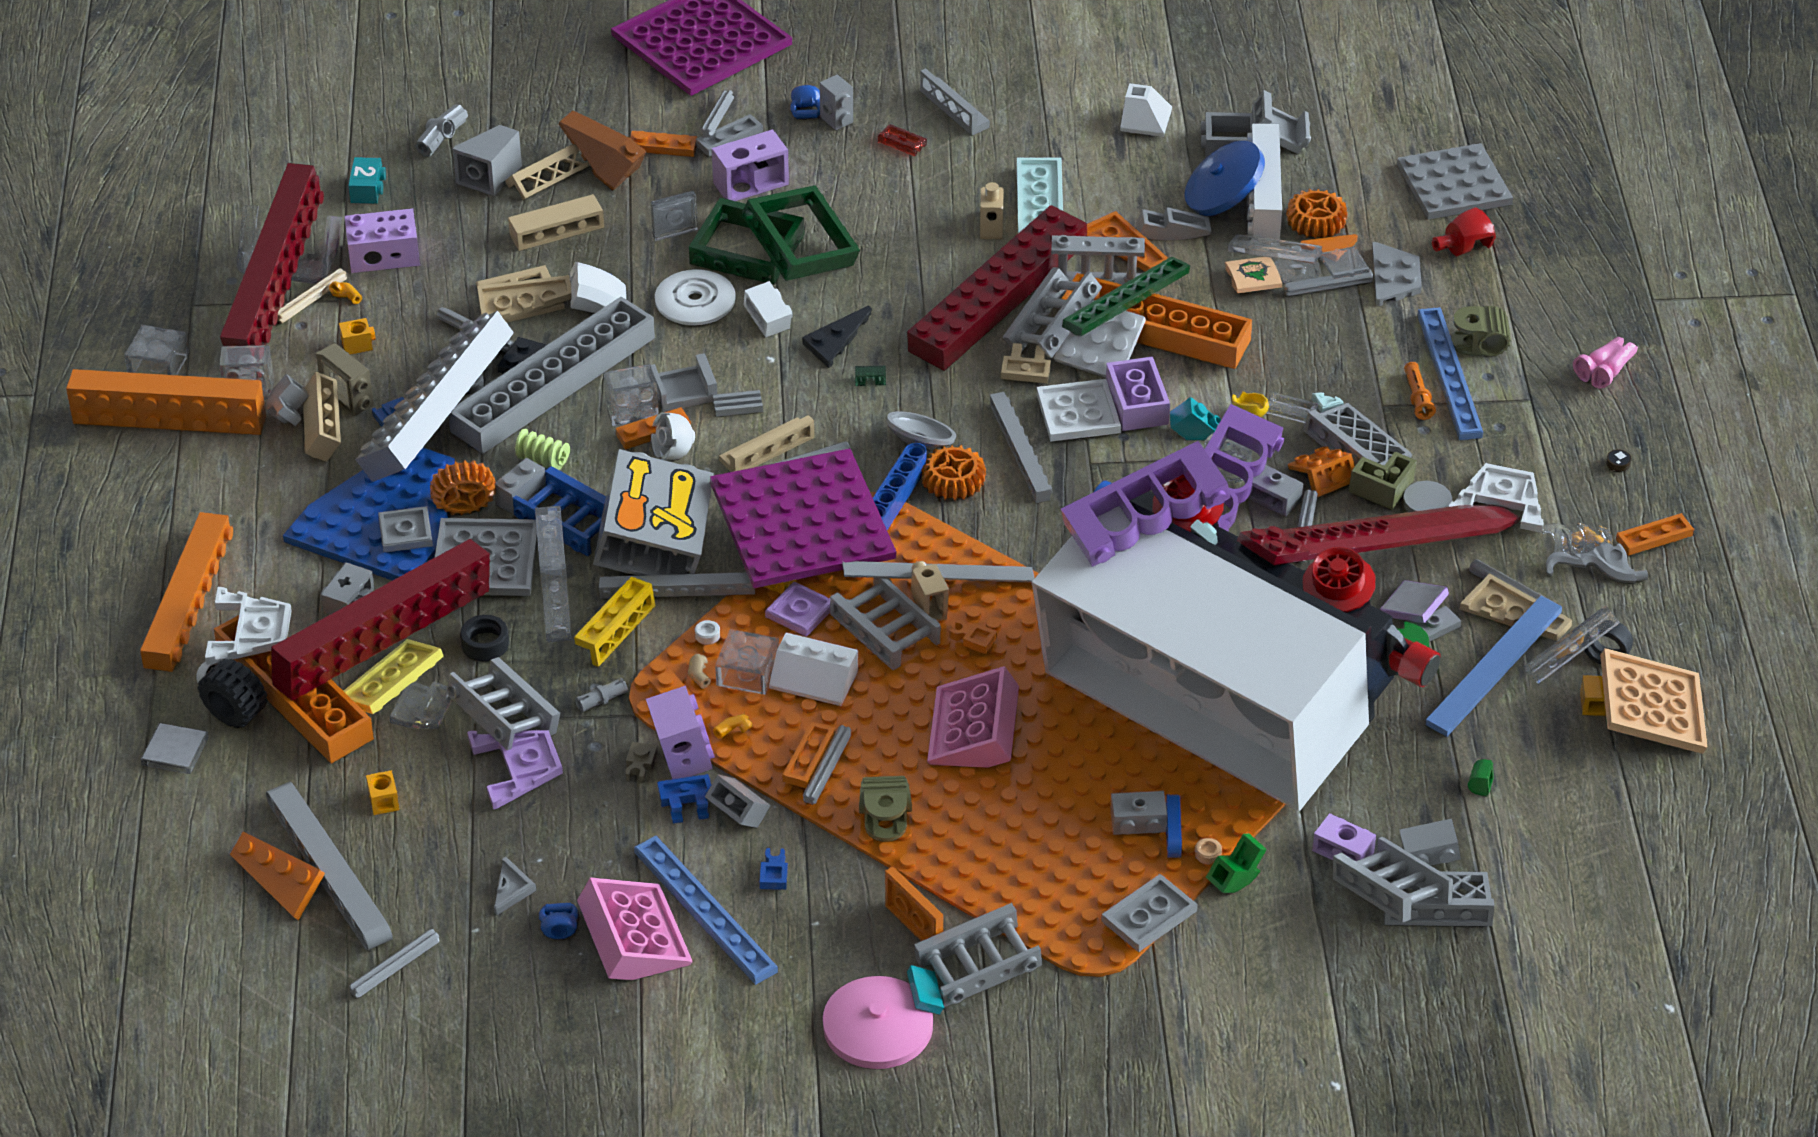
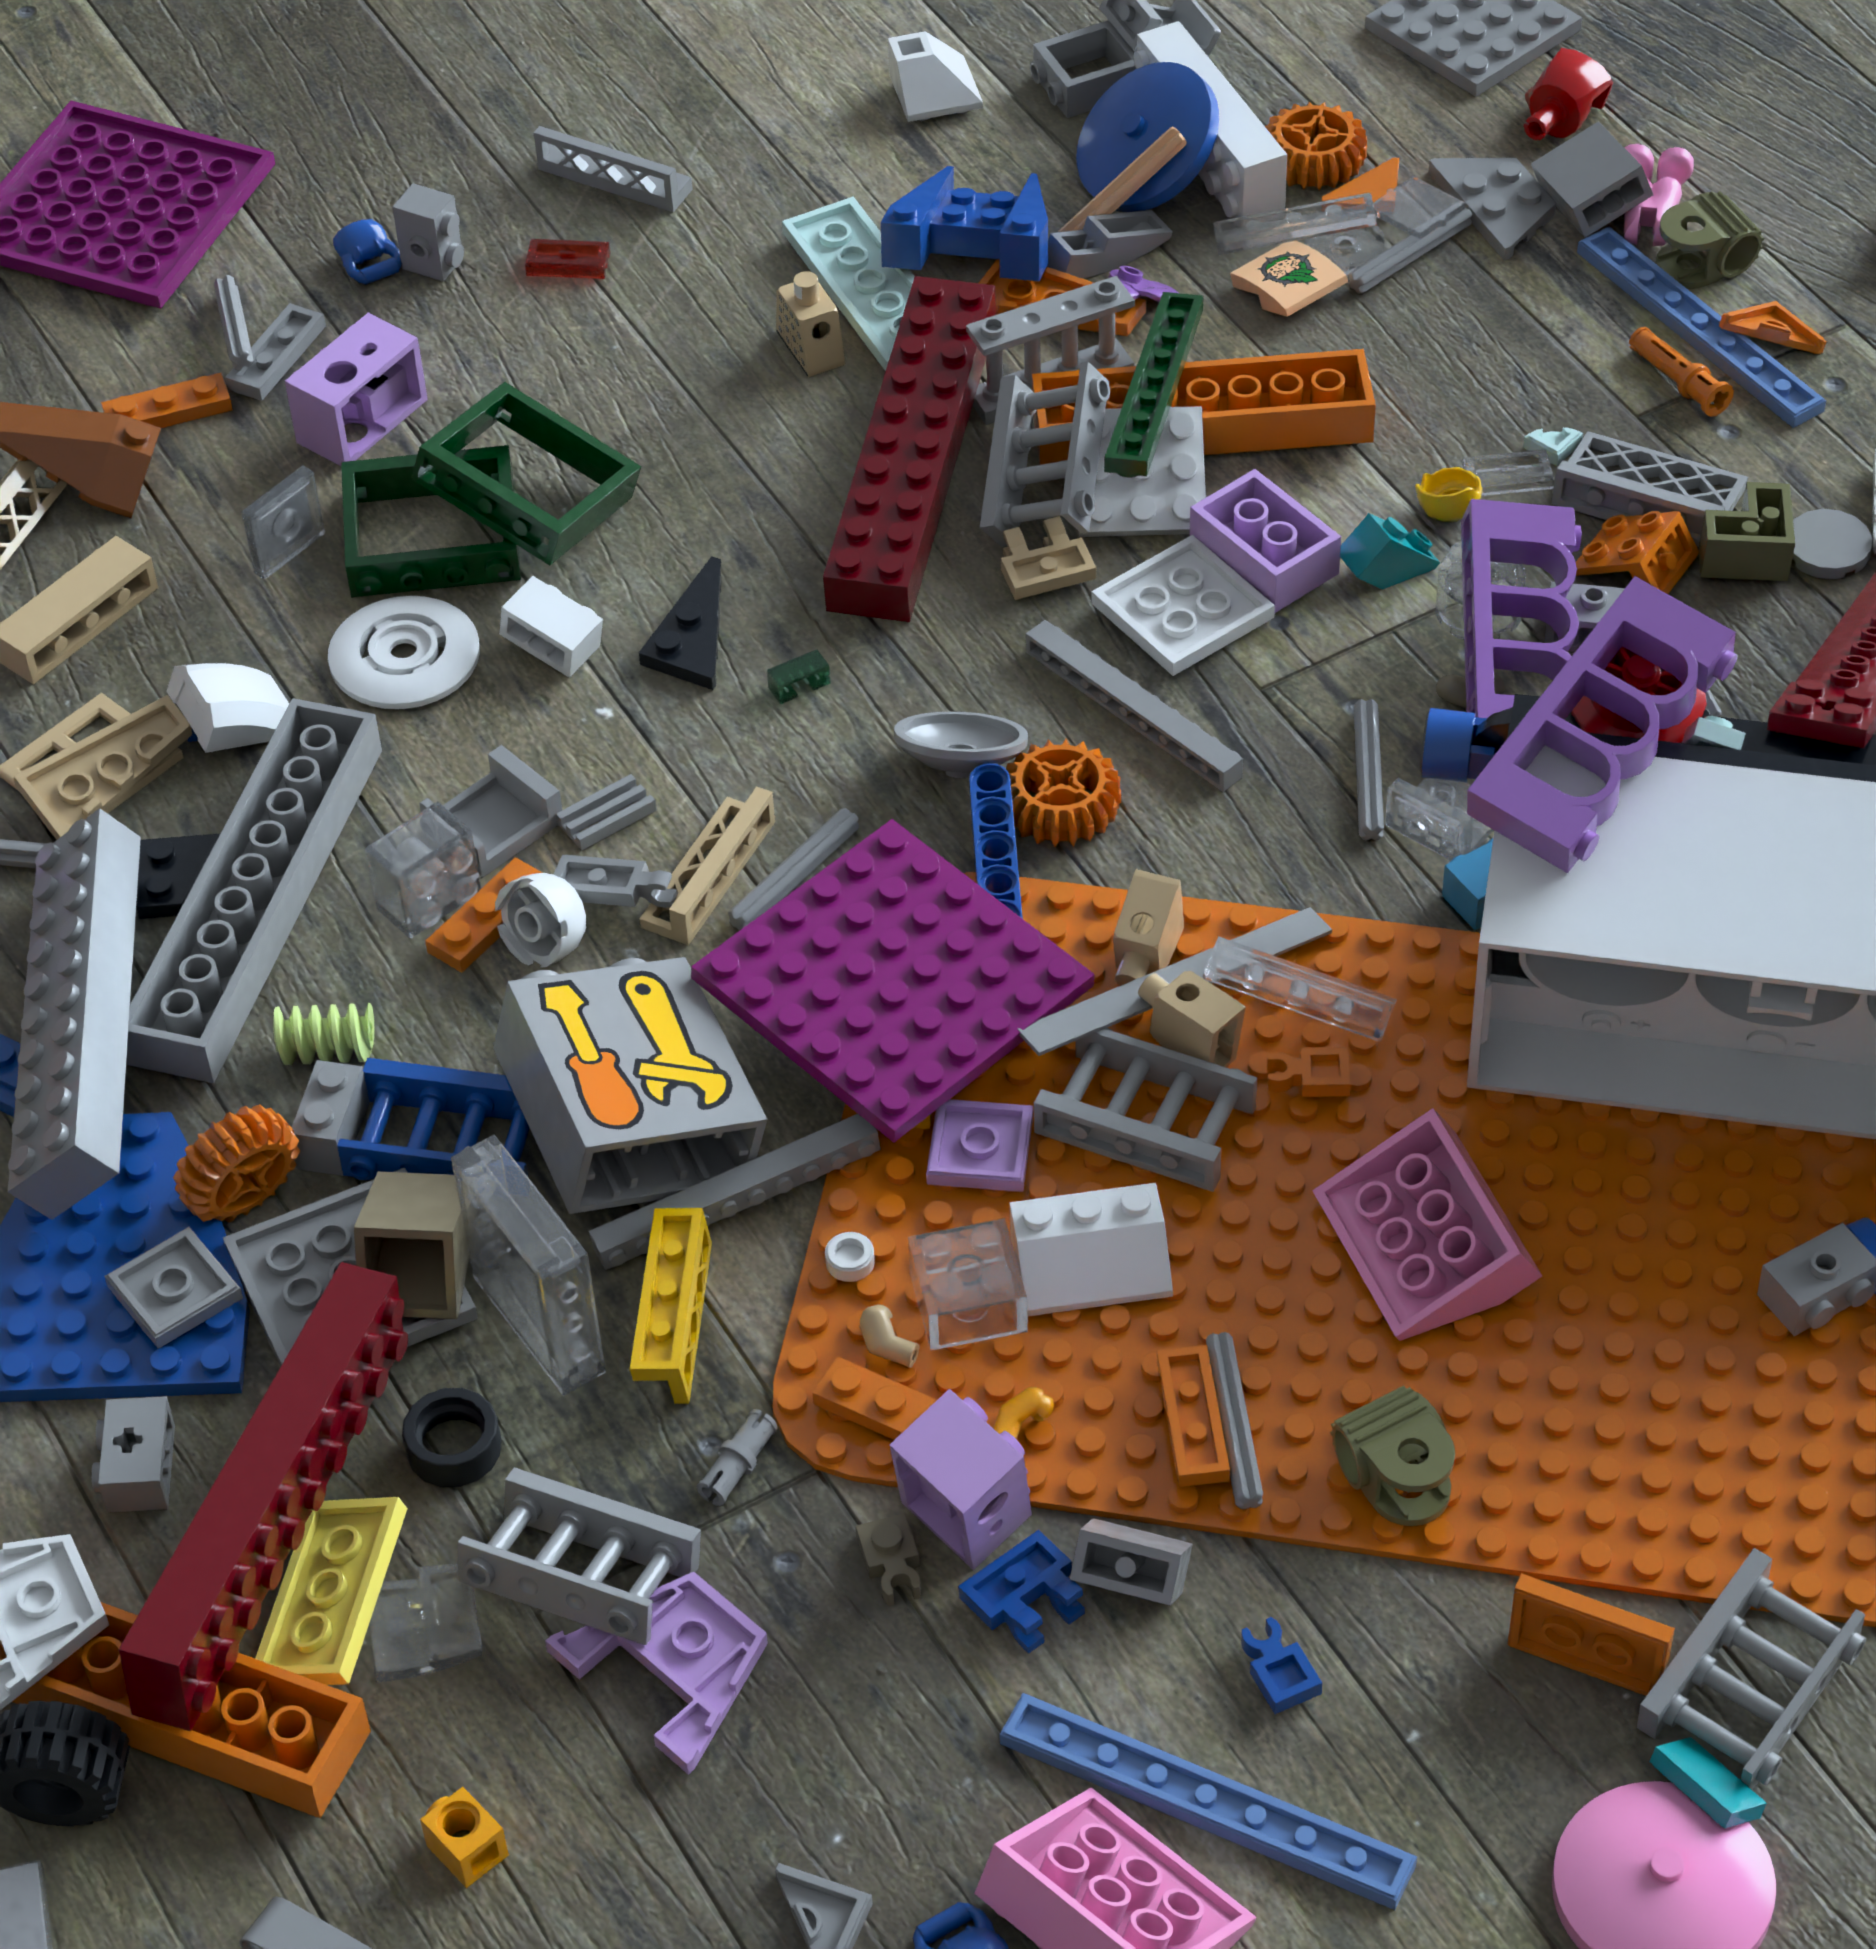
camera: 25 degrees left, 5 degrees up
(512, 550) = (417, 1233): none -> dark tan slope
(715, 433) = (615, 881): none -> light grey plate
(941, 542) = (1147, 926): none -> tan torso
(994, 598) = (1299, 989): none -> clear tile
(1103, 188) = (968, 224): none -> blue wedge
(1169, 247) = (1138, 286): none -> medium lavender plate
(1199, 195) = (1130, 179): none -> light nougat axle
(1442, 279) = (1592, 179): none -> light grey brick
(1477, 293) = (1673, 170): none -> bright pink piece
(1484, 384) = (1773, 324): none -> orange tile

